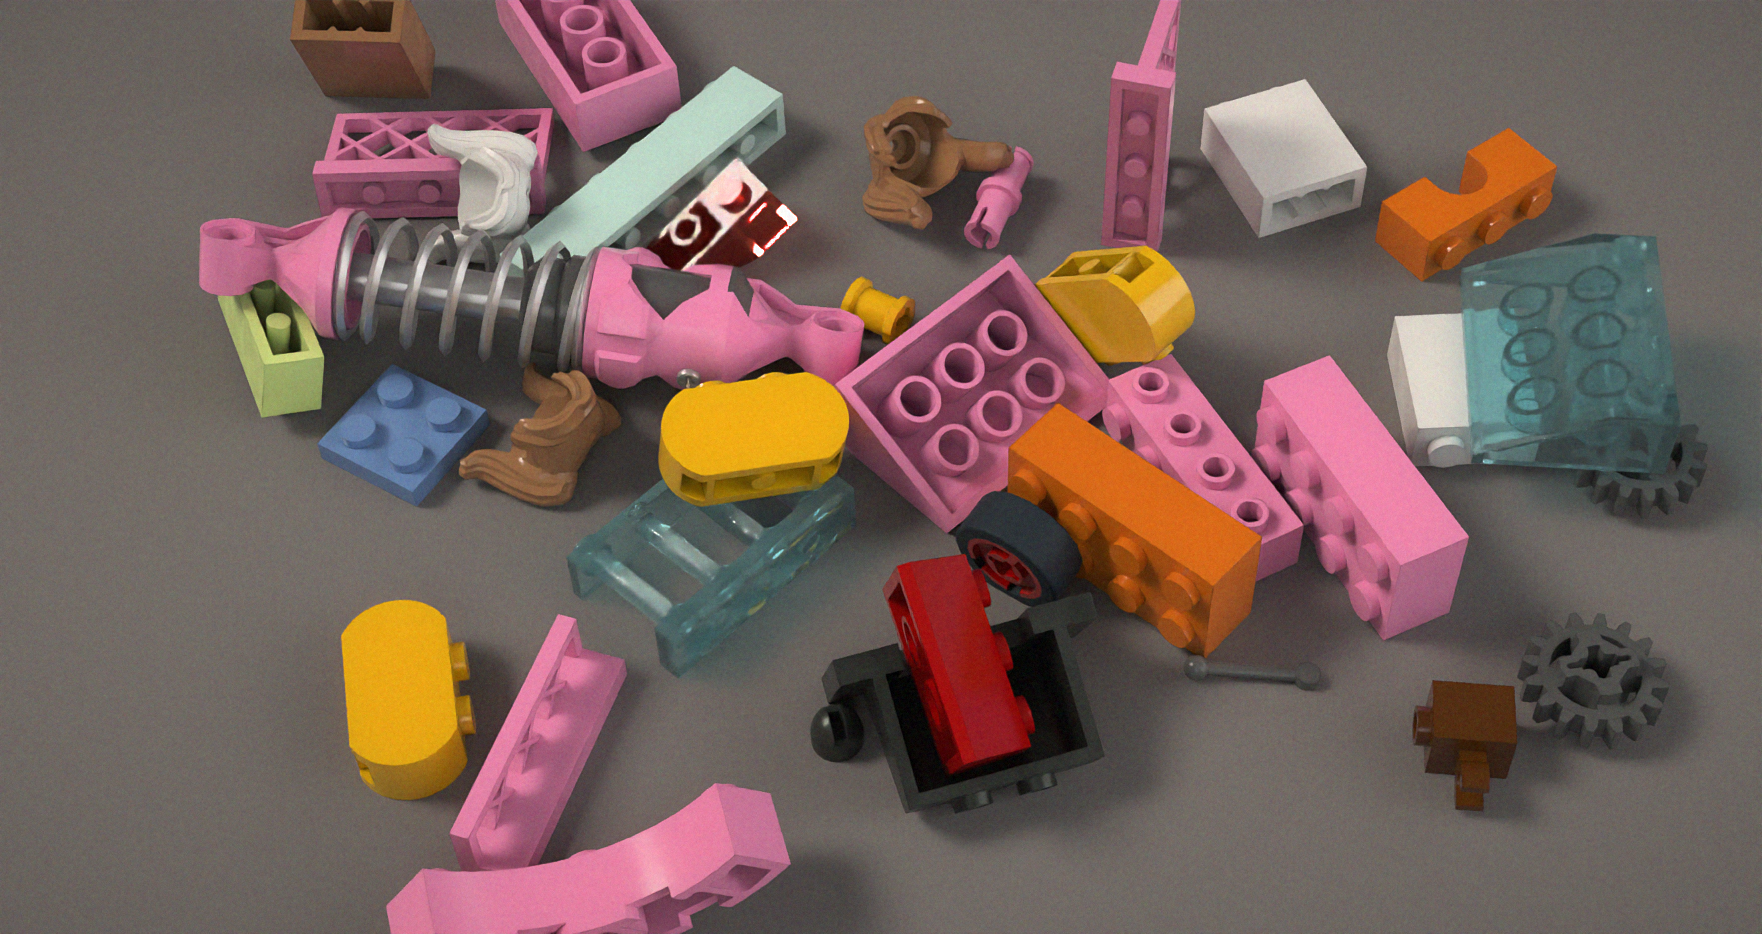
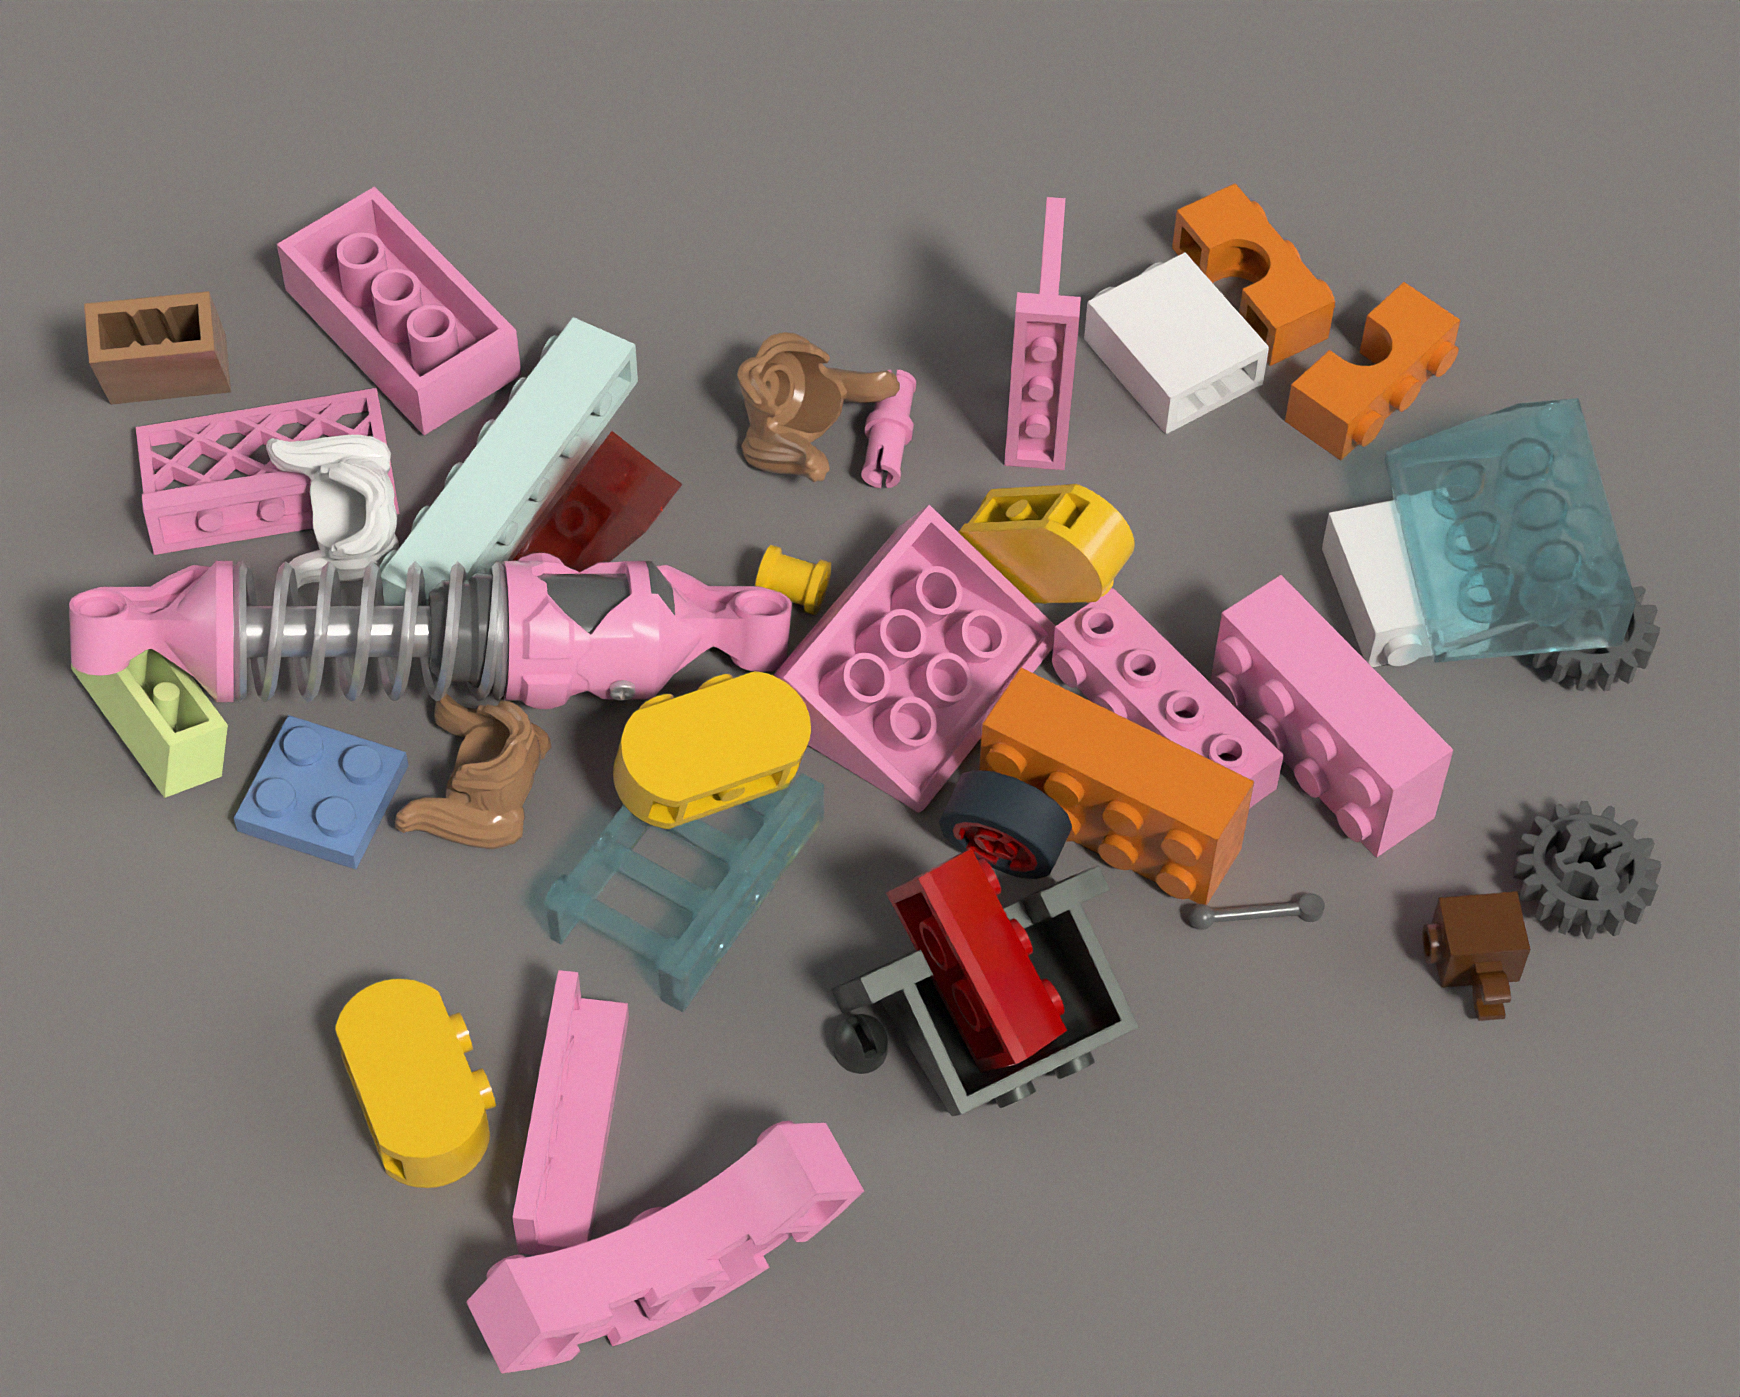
camera: 15 degrees left, 5 degrees up
(1387, 123) = (1234, 239): none -> orange arch

